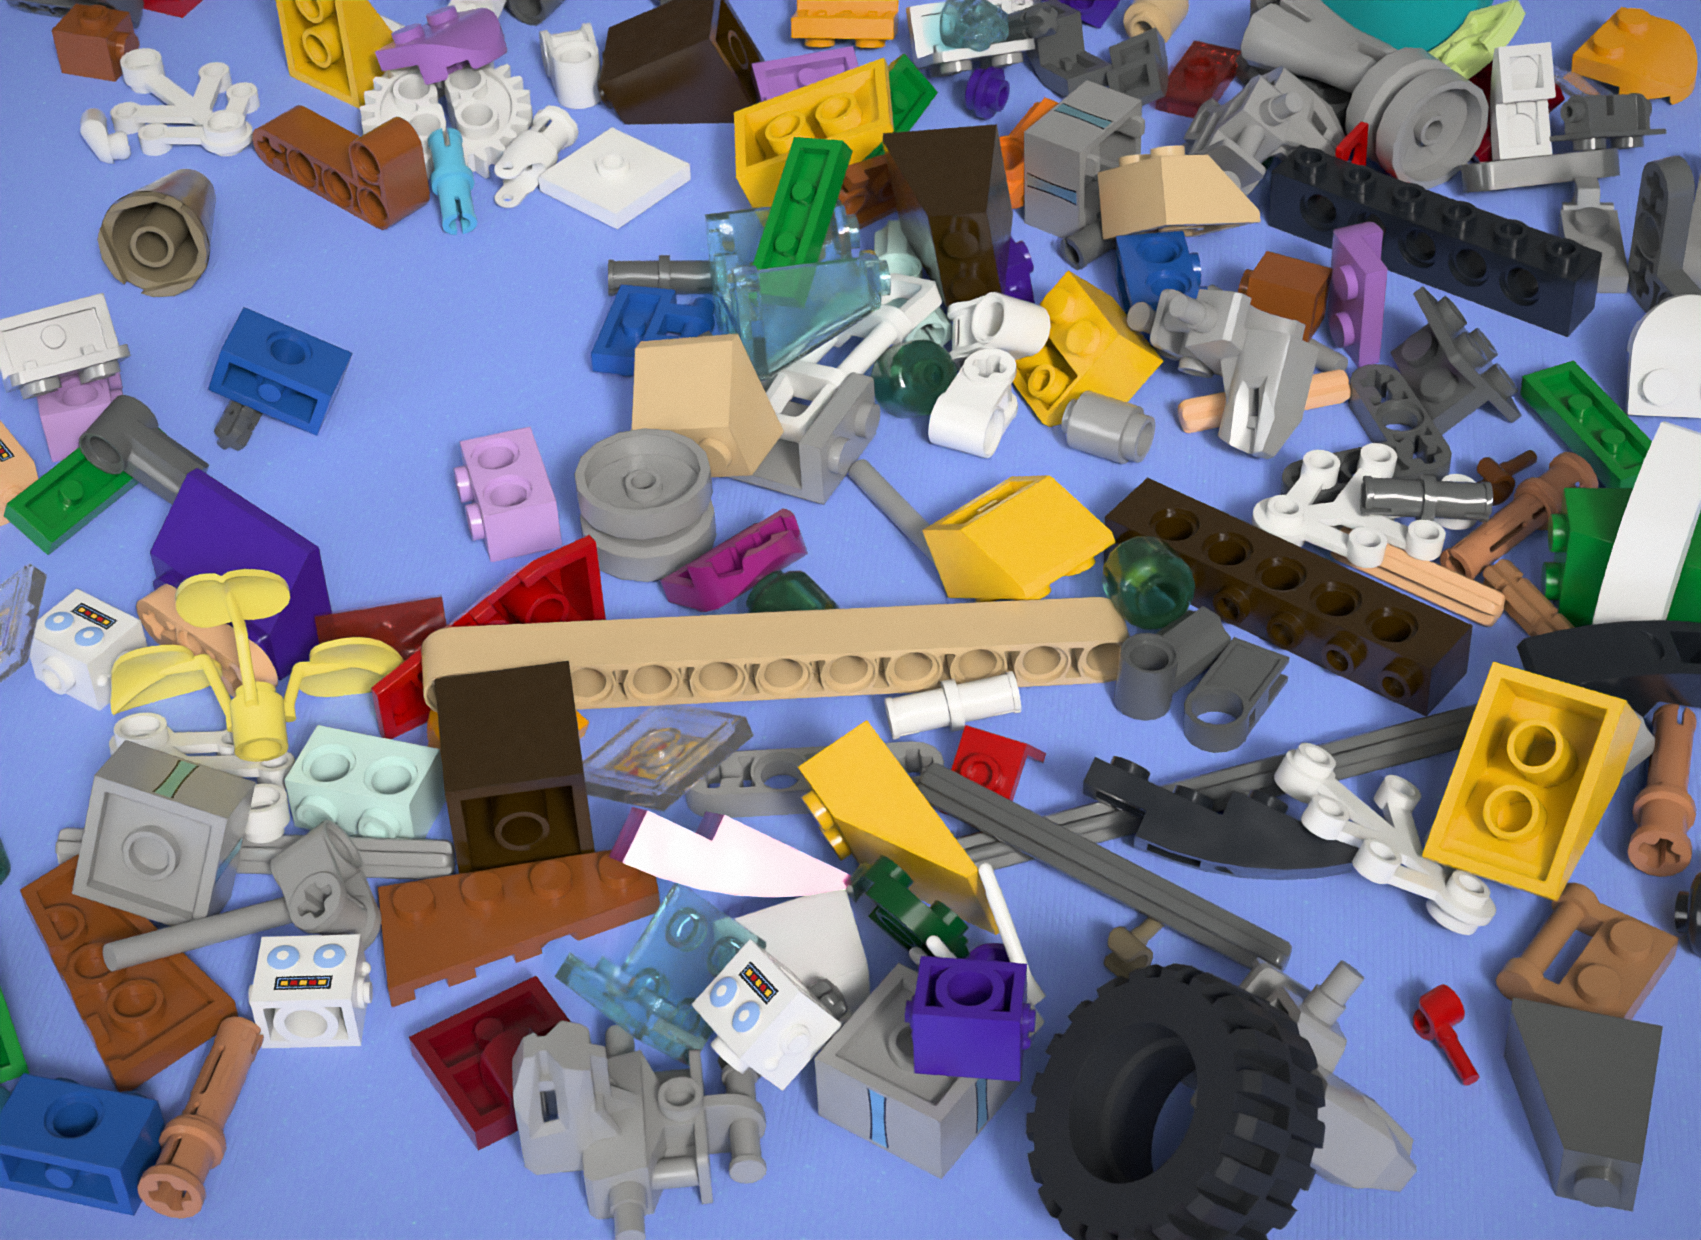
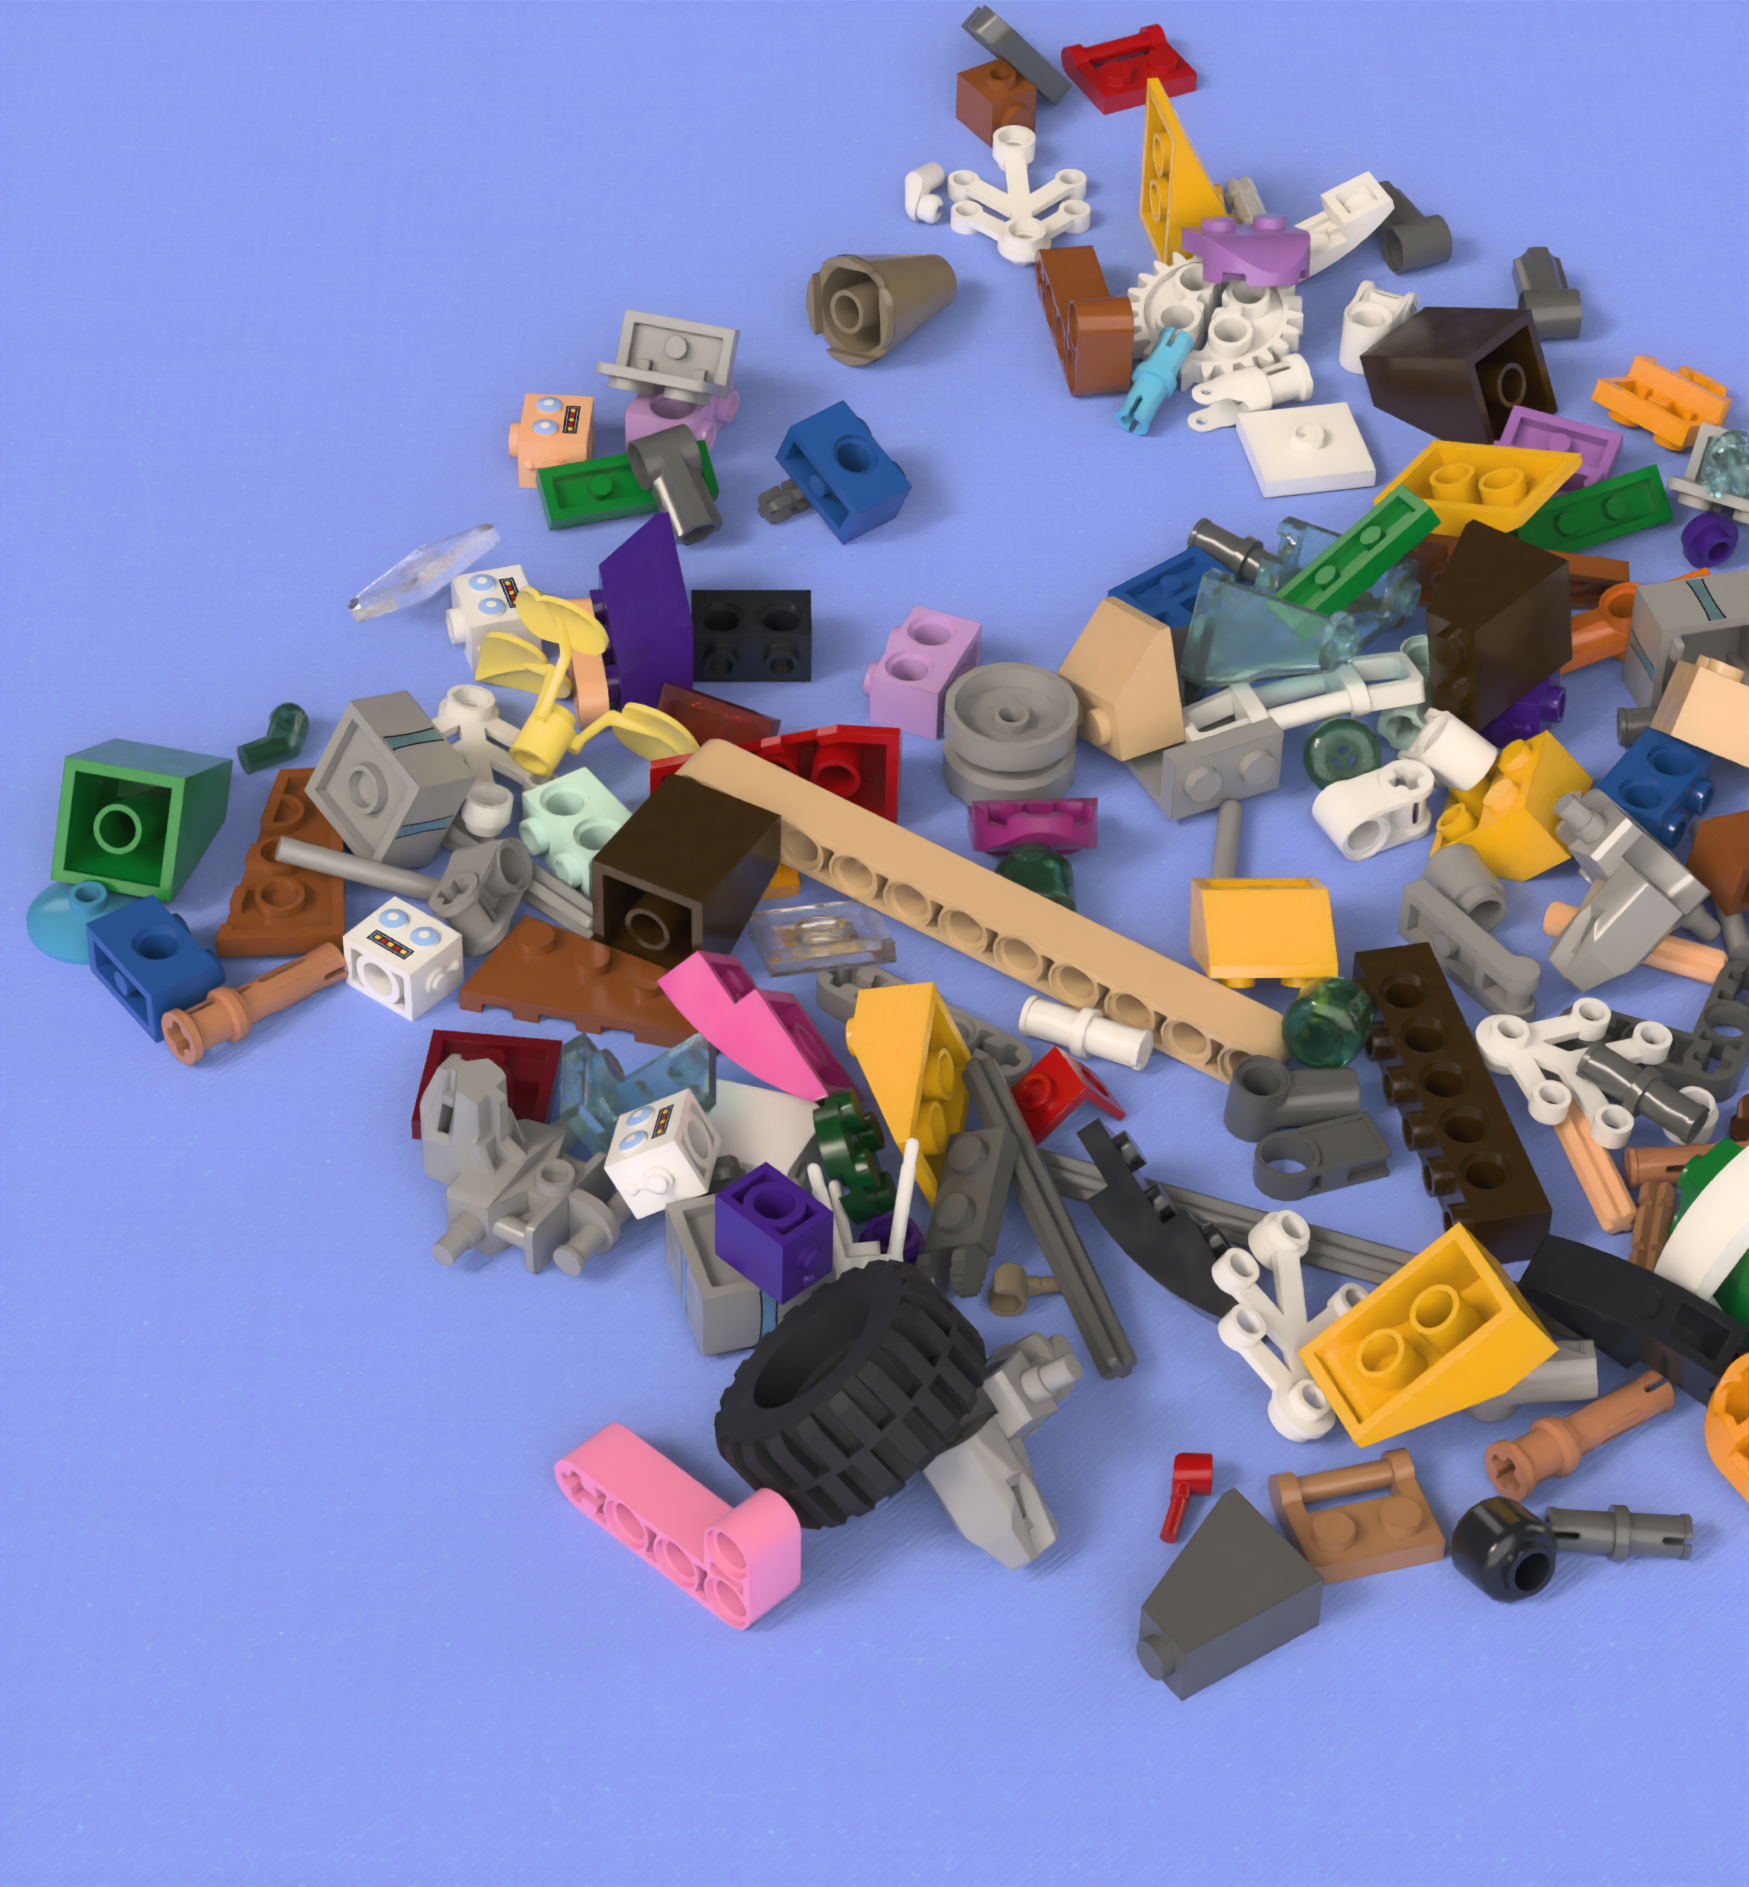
camera: 35 degrees right, 0 degrees up
(354, 532) = (751, 635): none -> black brick
(1041, 905) = (968, 1209): none -> dark grey hinge
(1119, 465) = (1469, 953): none -> light grey plate

